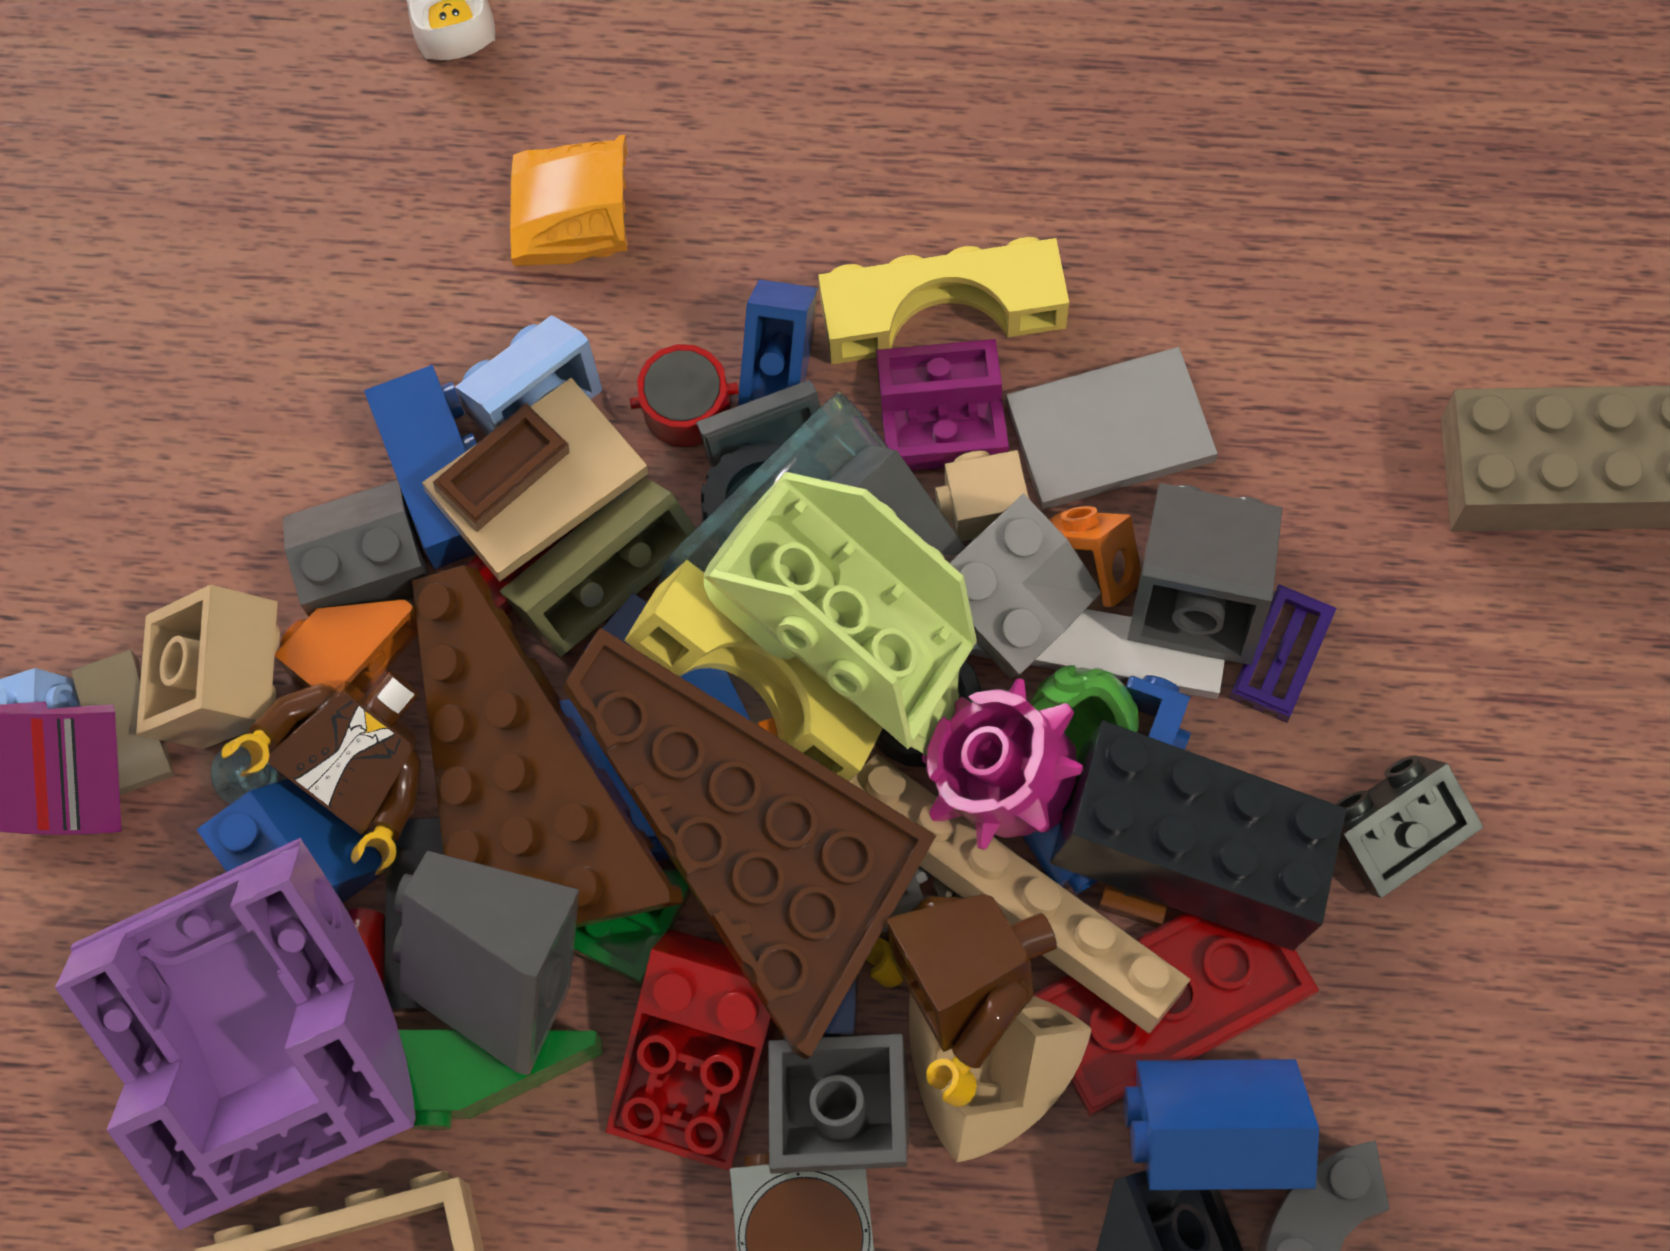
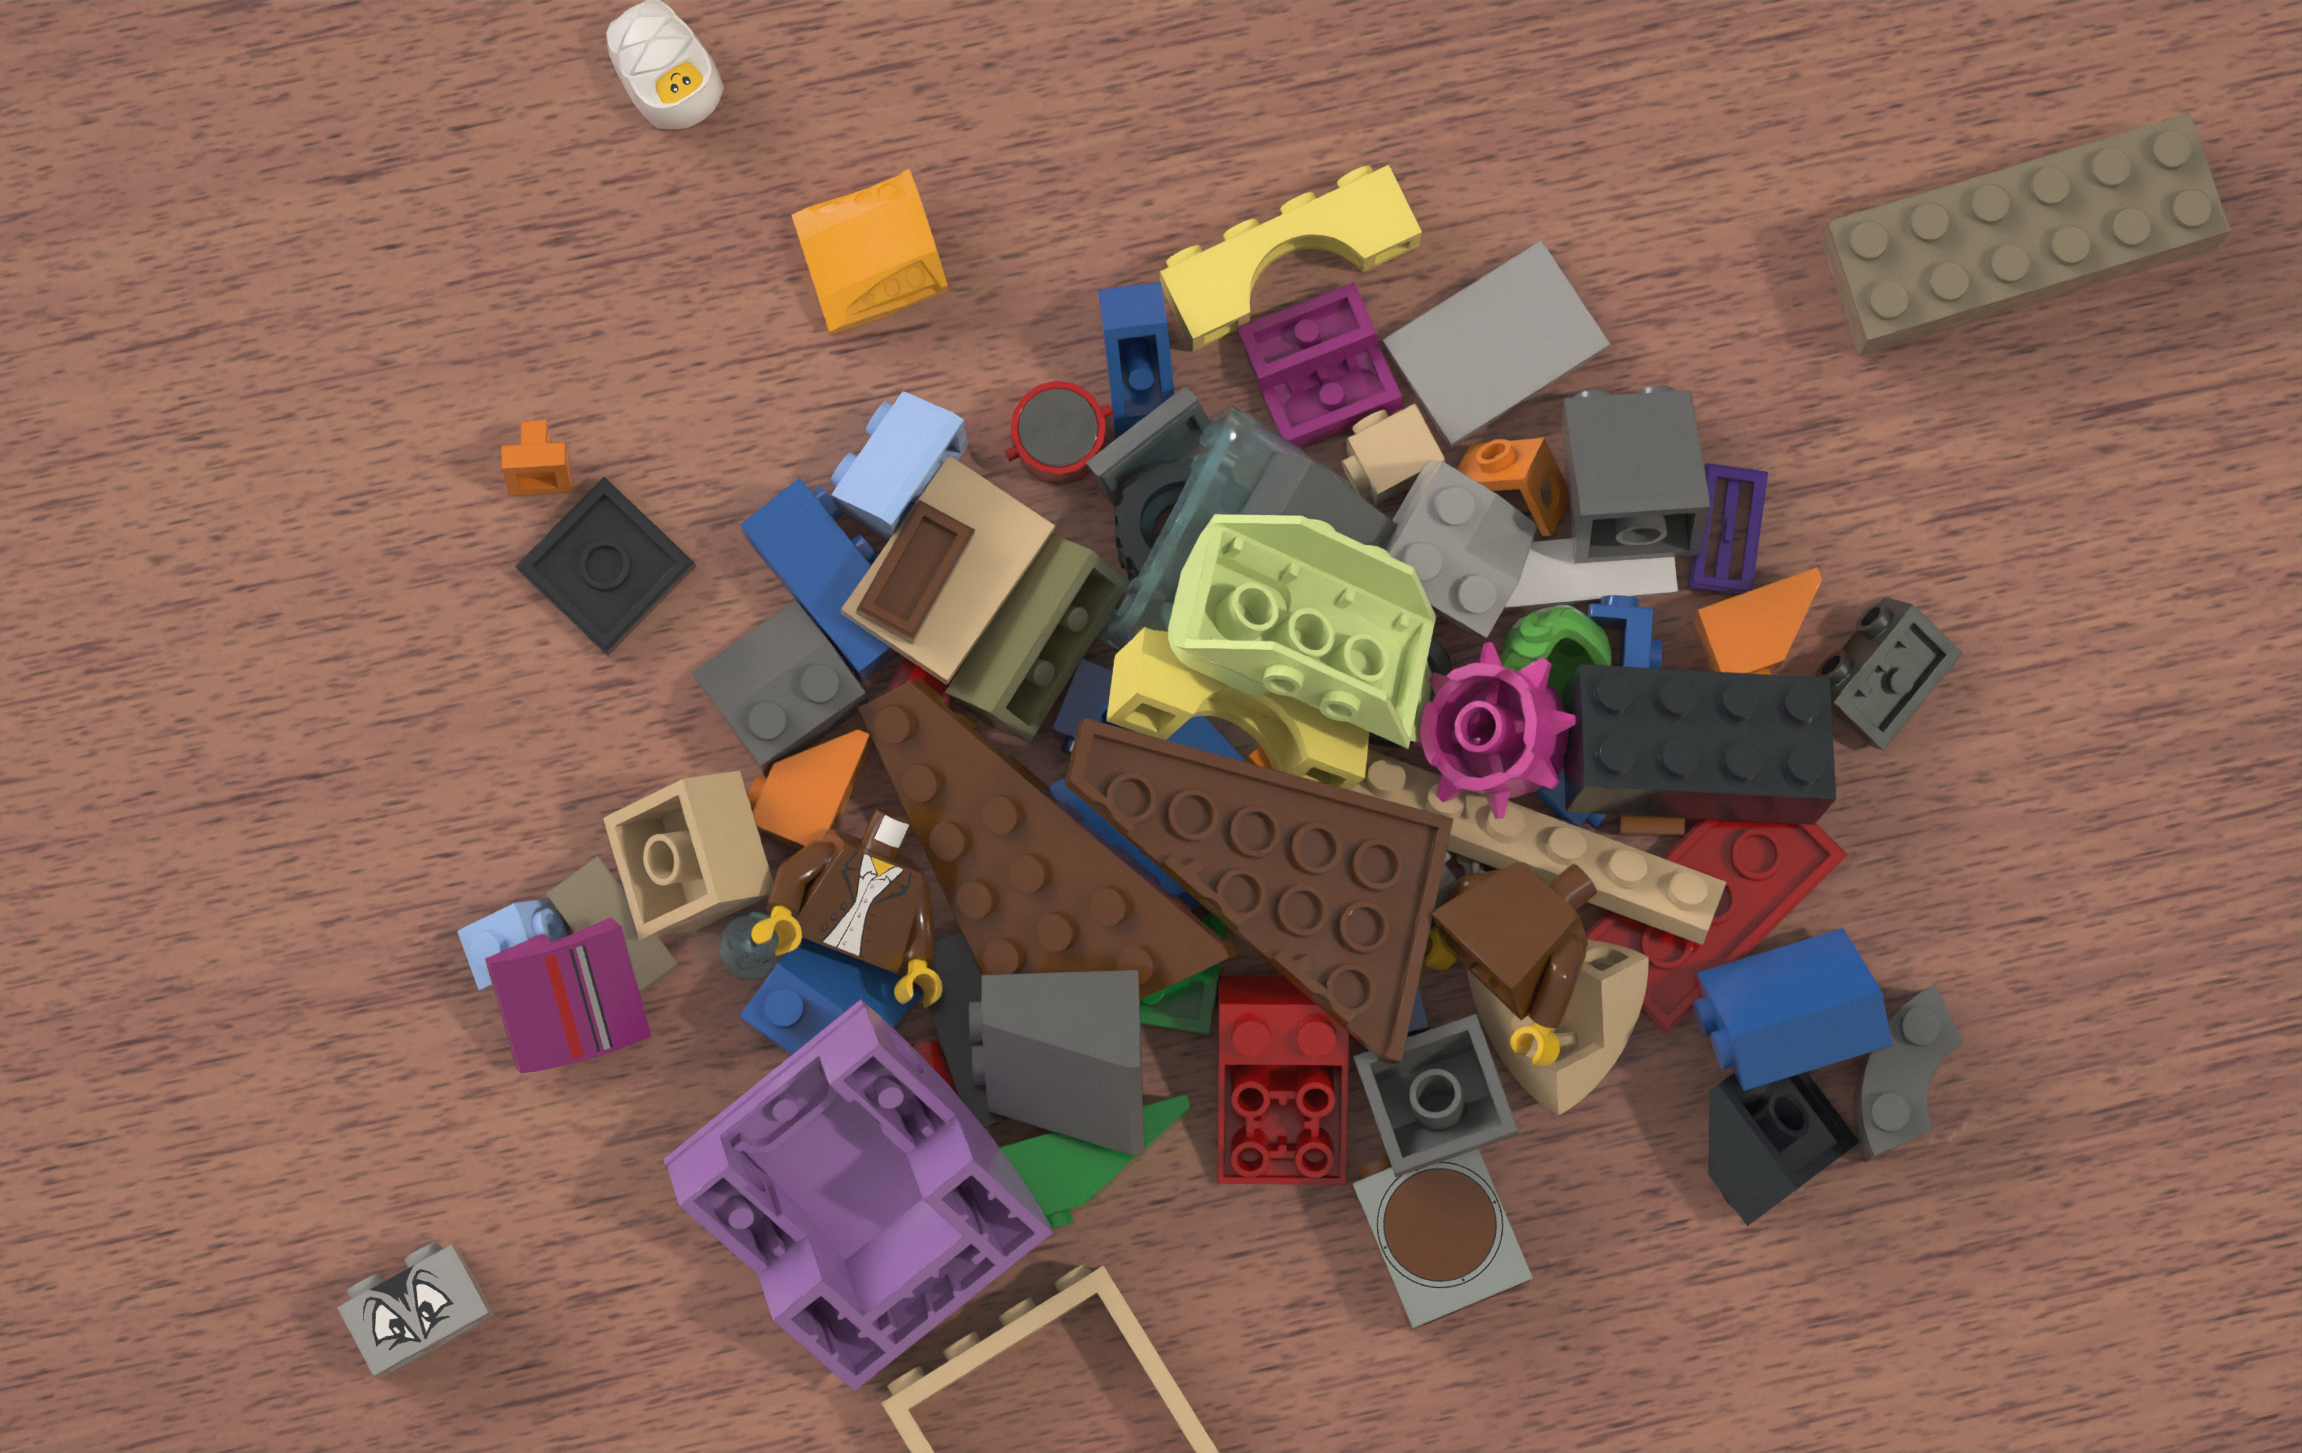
camera: 20 degrees left, 10 degrees up
(209, 297) = (537, 463): none -> orange tile
(242, 405) = (605, 566): none -> black tile
(1289, 741) = (1756, 627): none -> orange slope

